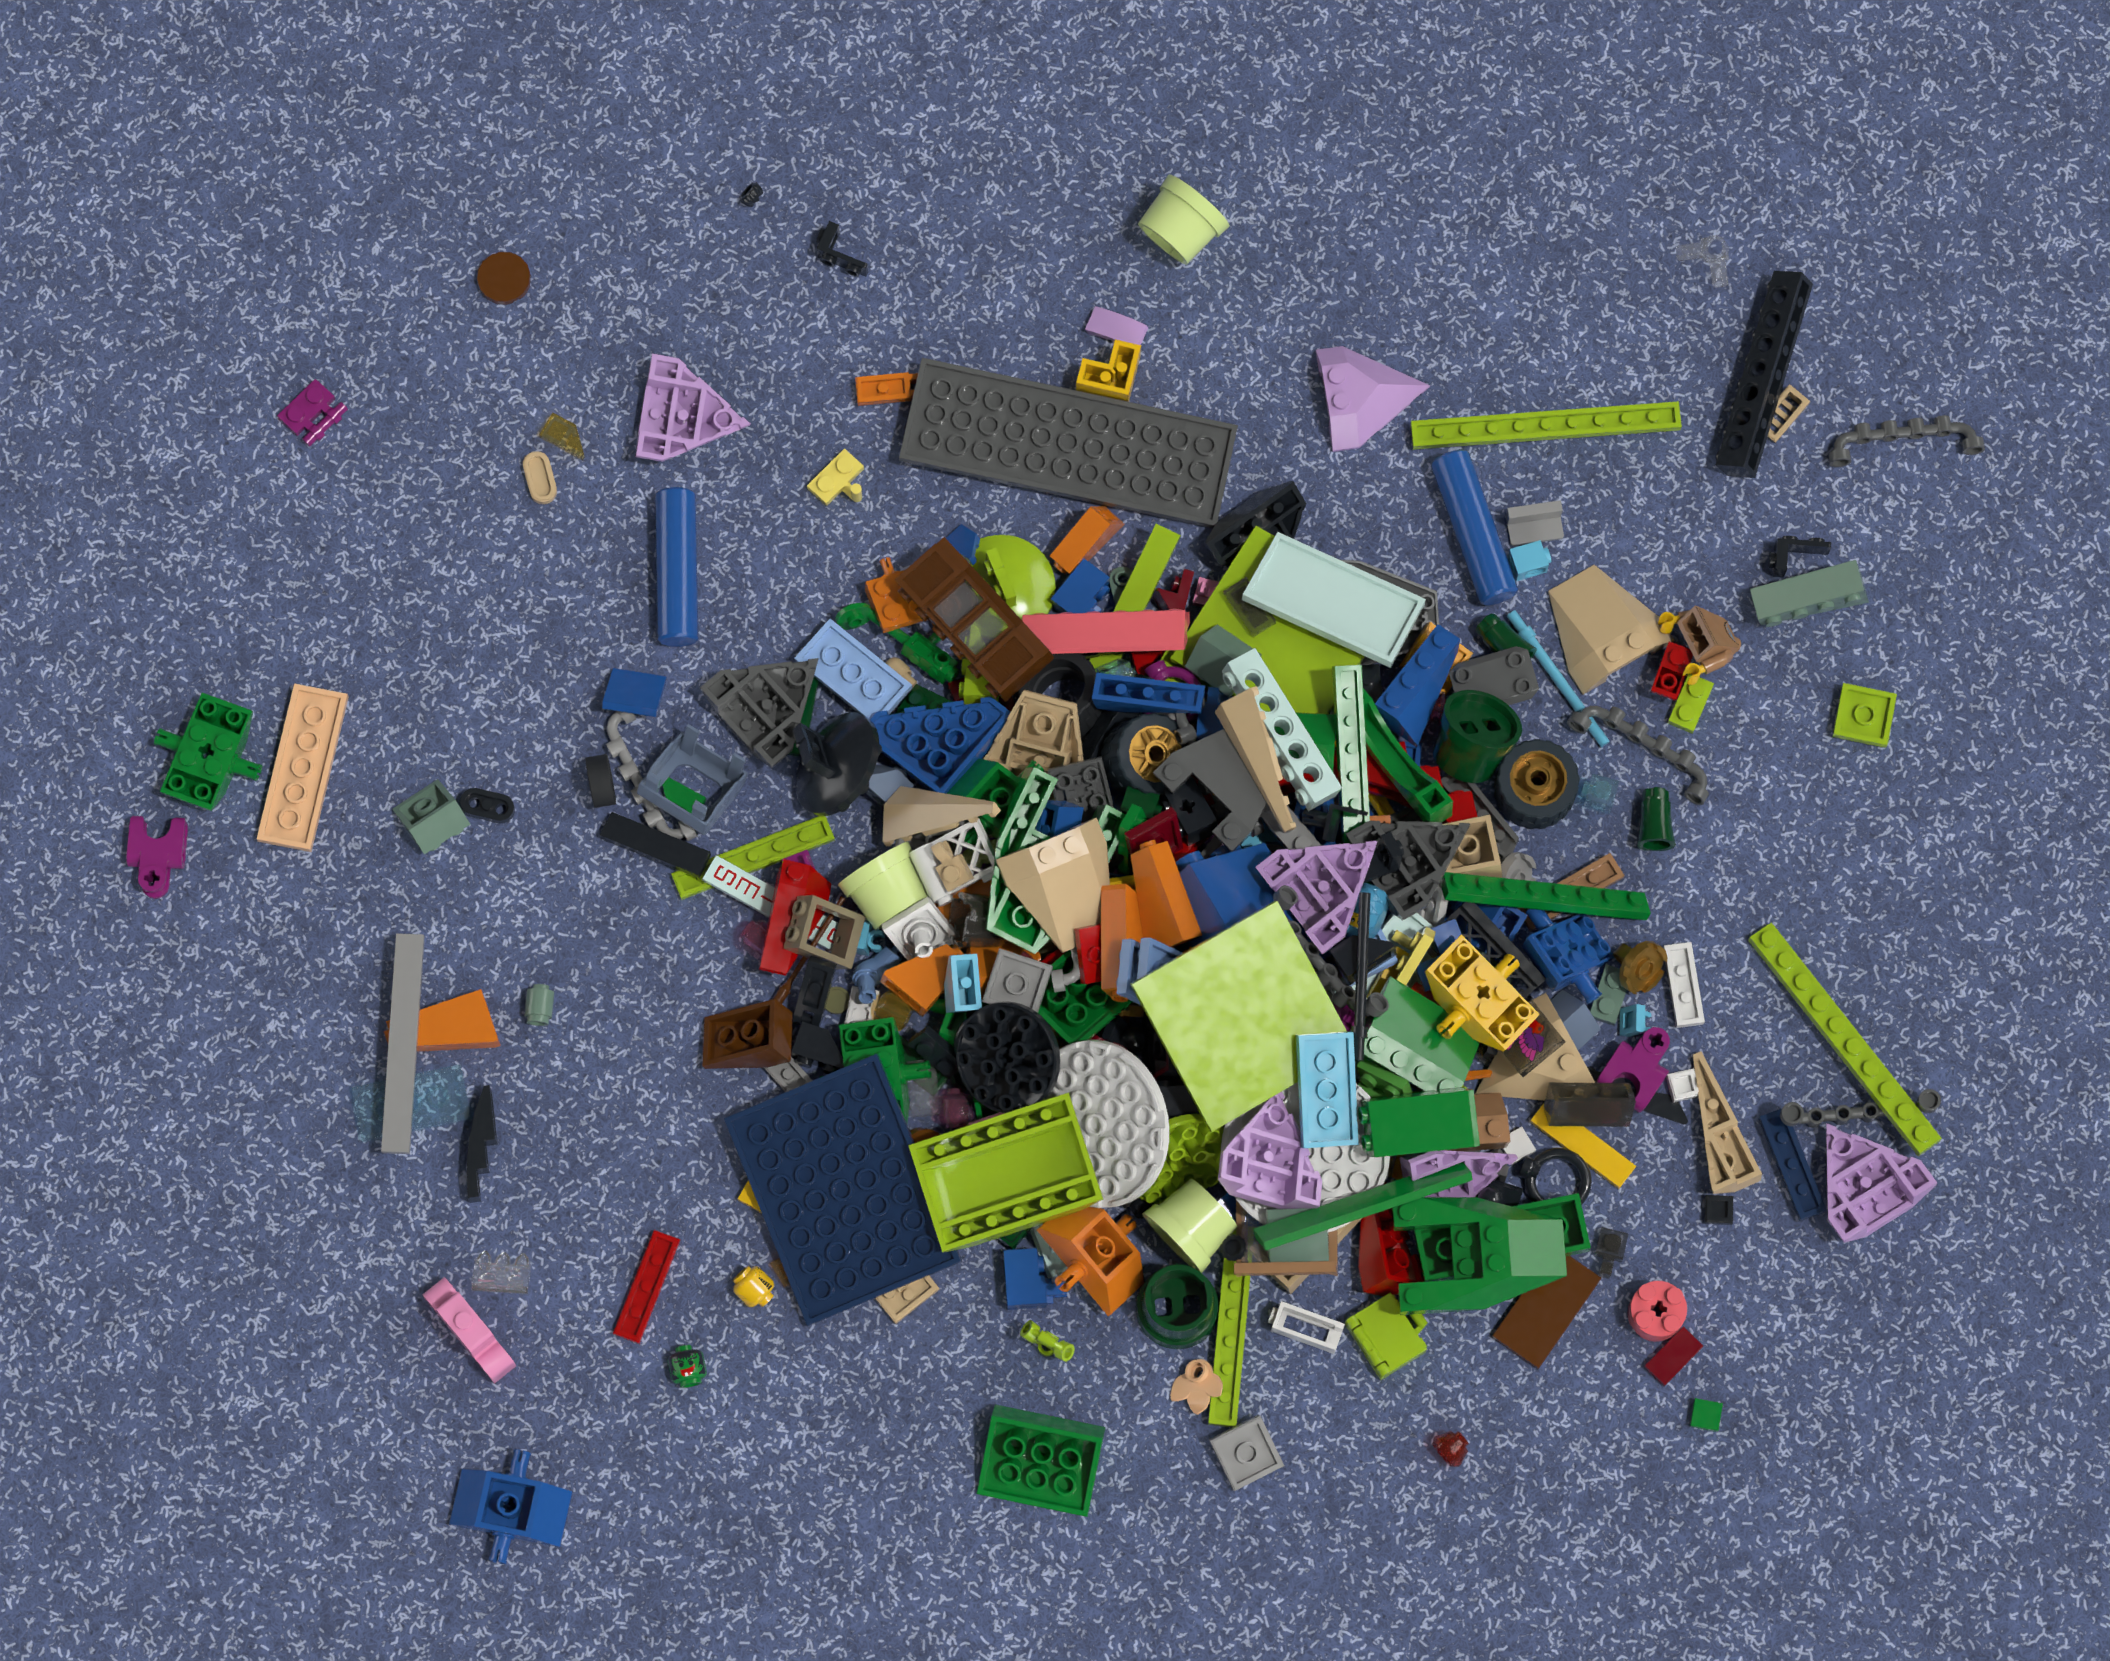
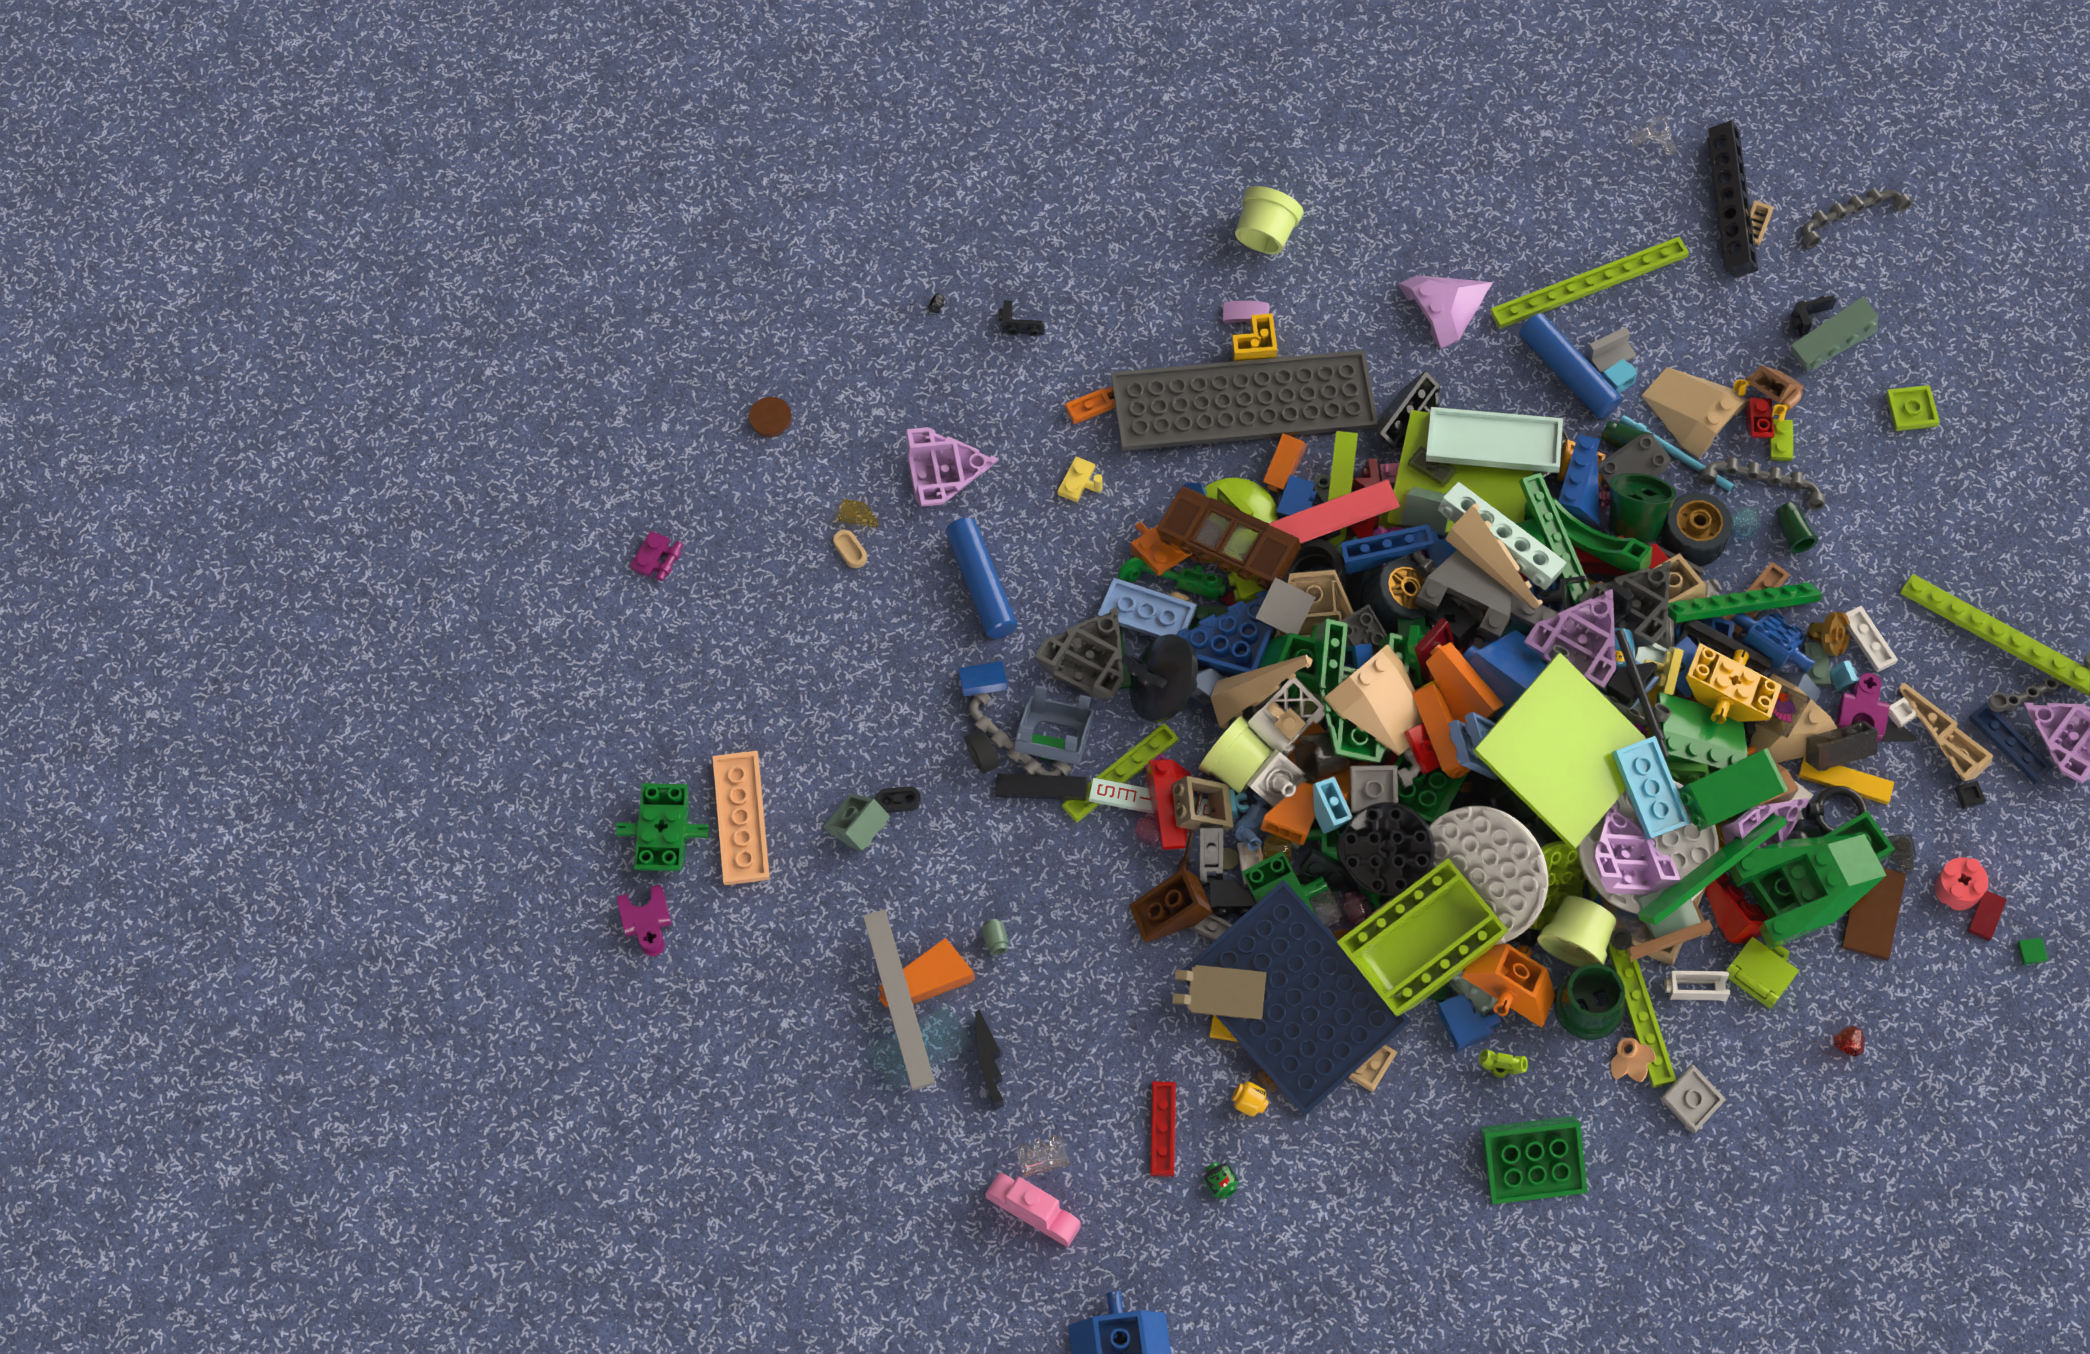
camera: 15 degrees left, 10 degrees down
(764, 1157) = (1223, 991): none -> dark tan tile
(1004, 728) = (1285, 607): none -> light grey tile

